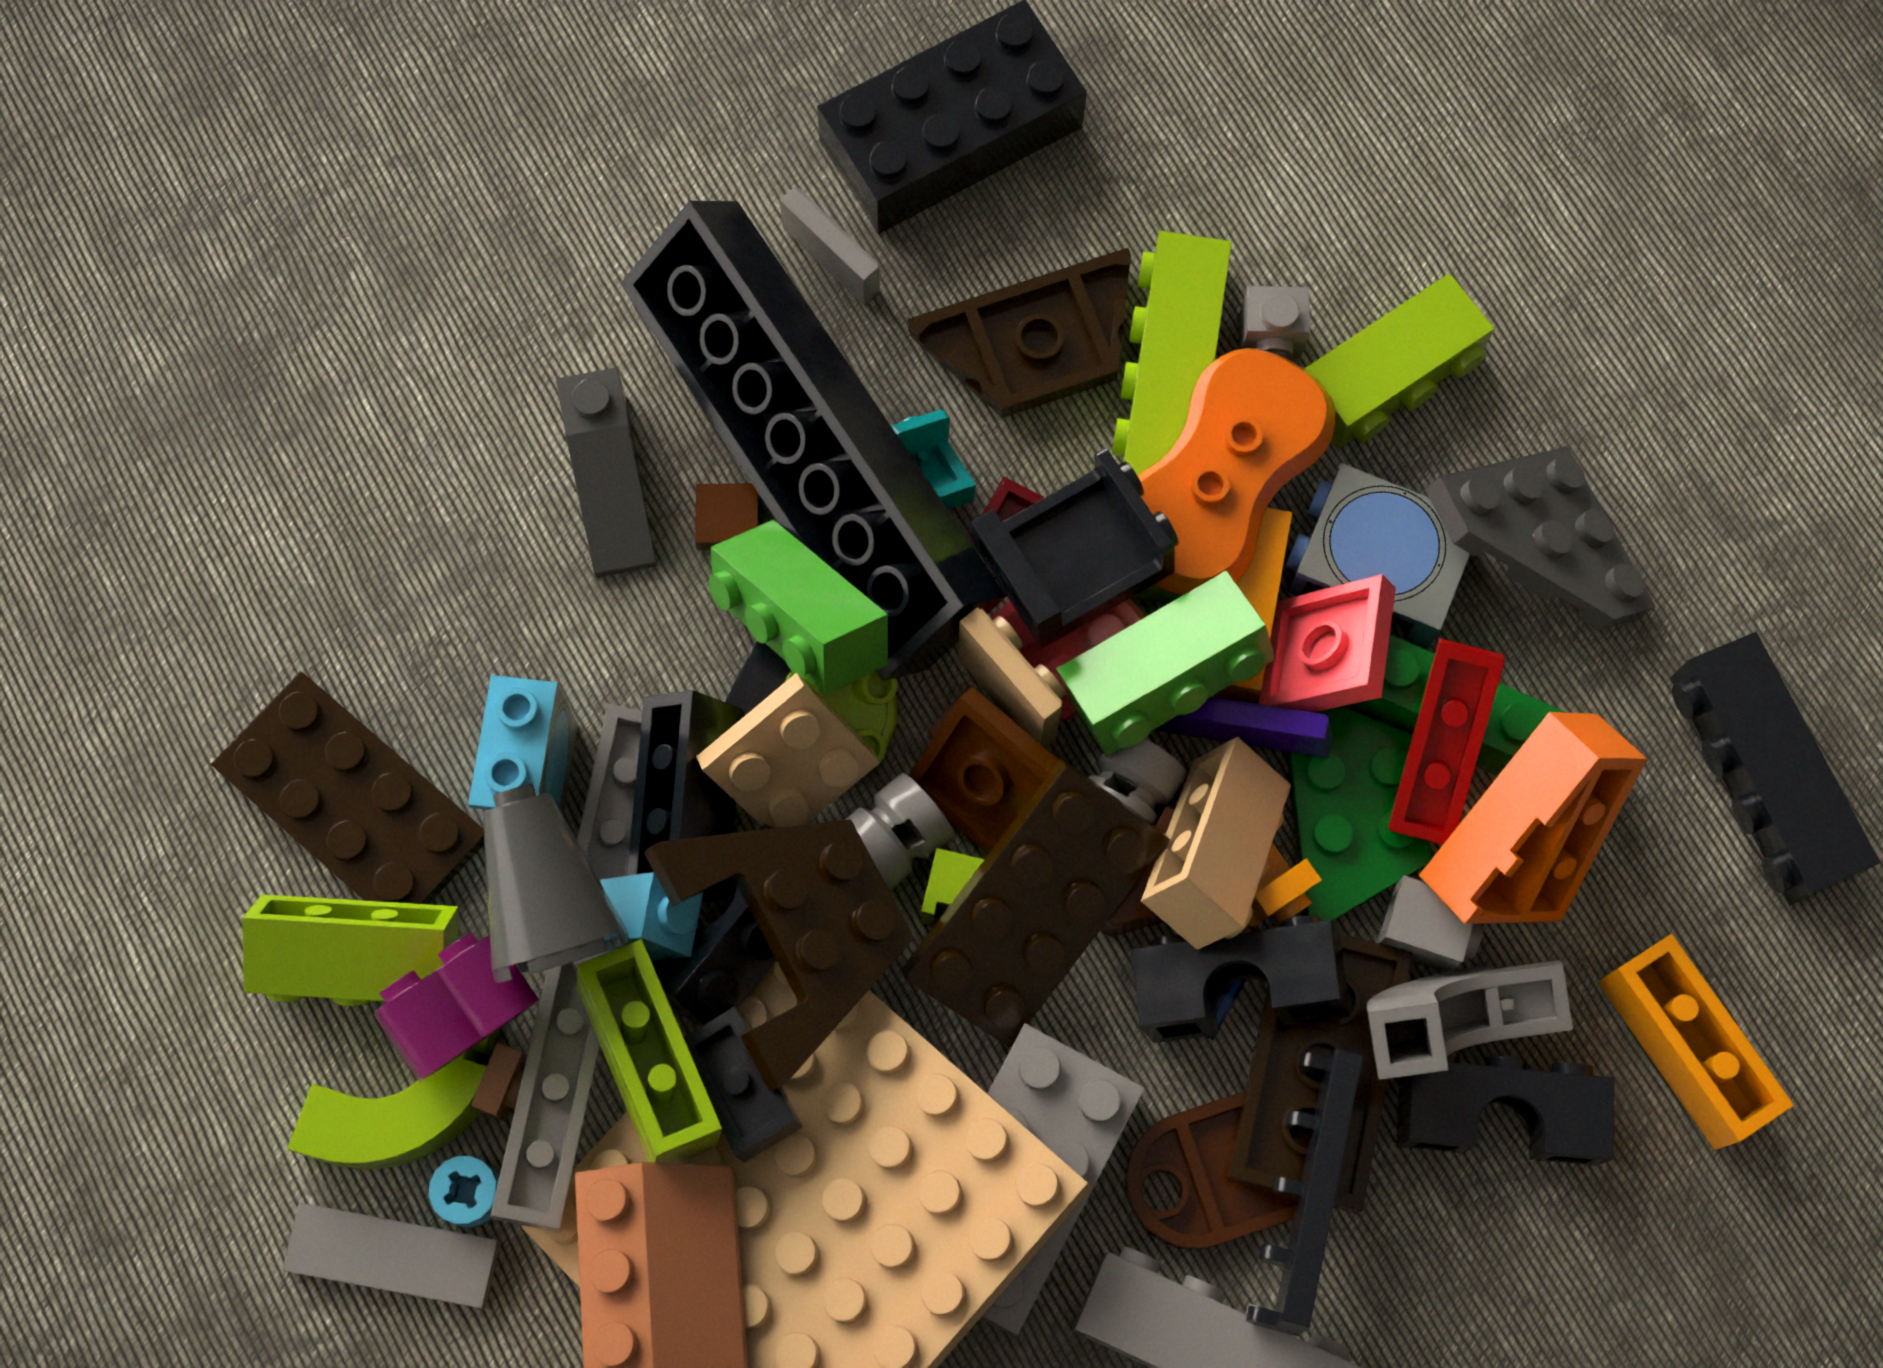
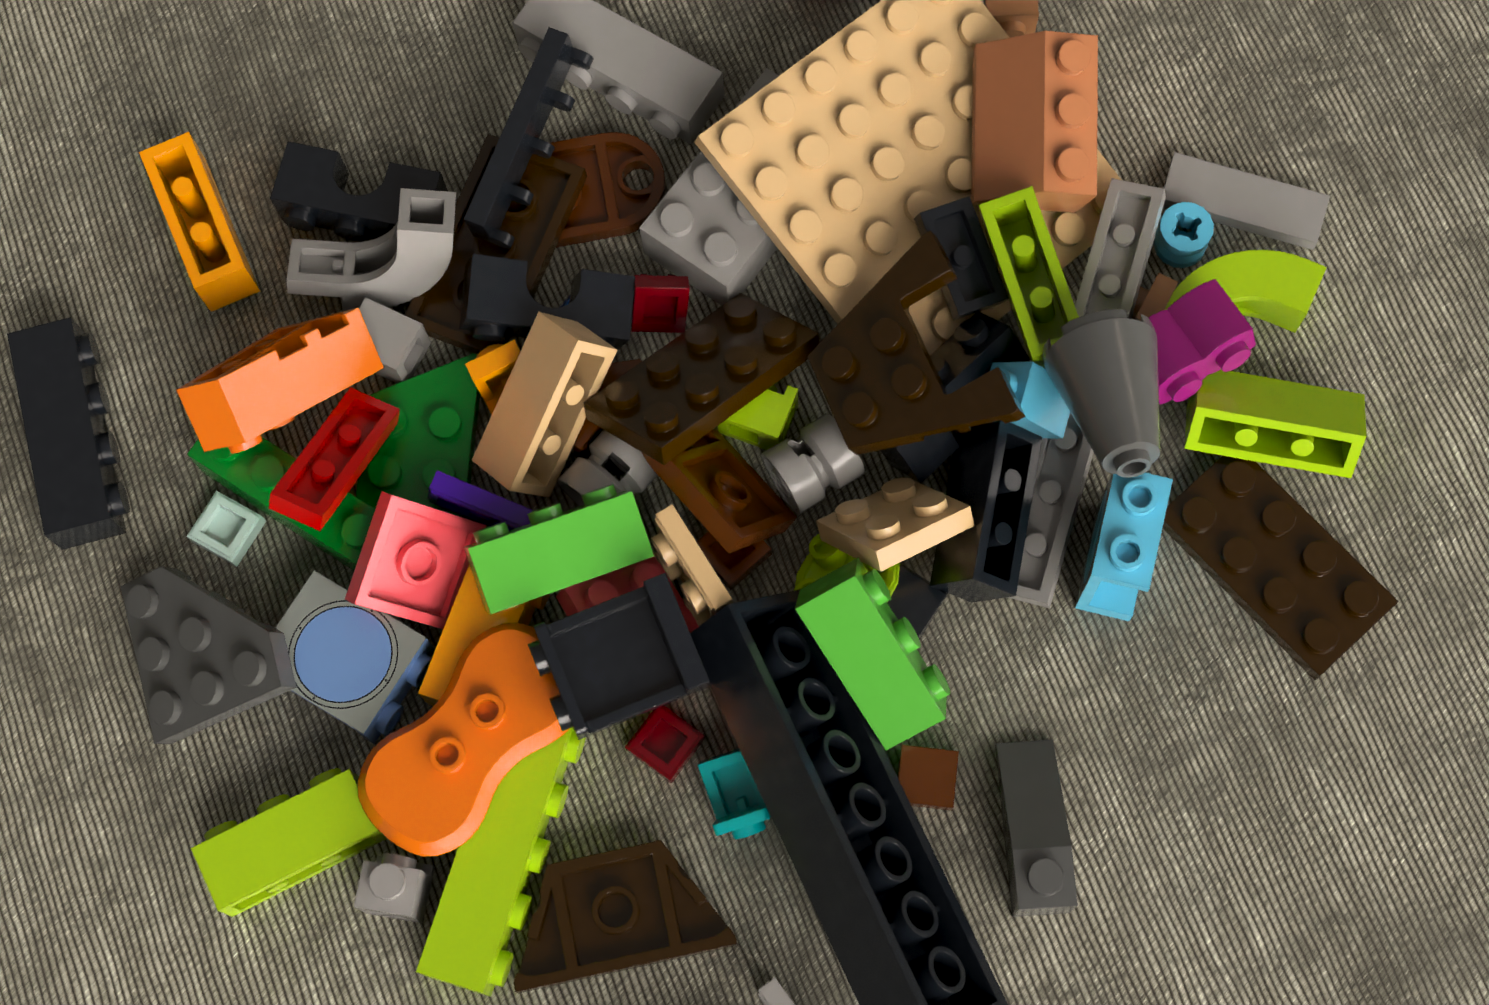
camera: 165 degrees left, 0 degrees up
(1105, 1014) = (660, 303): none -> dark red tile
(1559, 682) = (226, 528): none -> light aqua tile

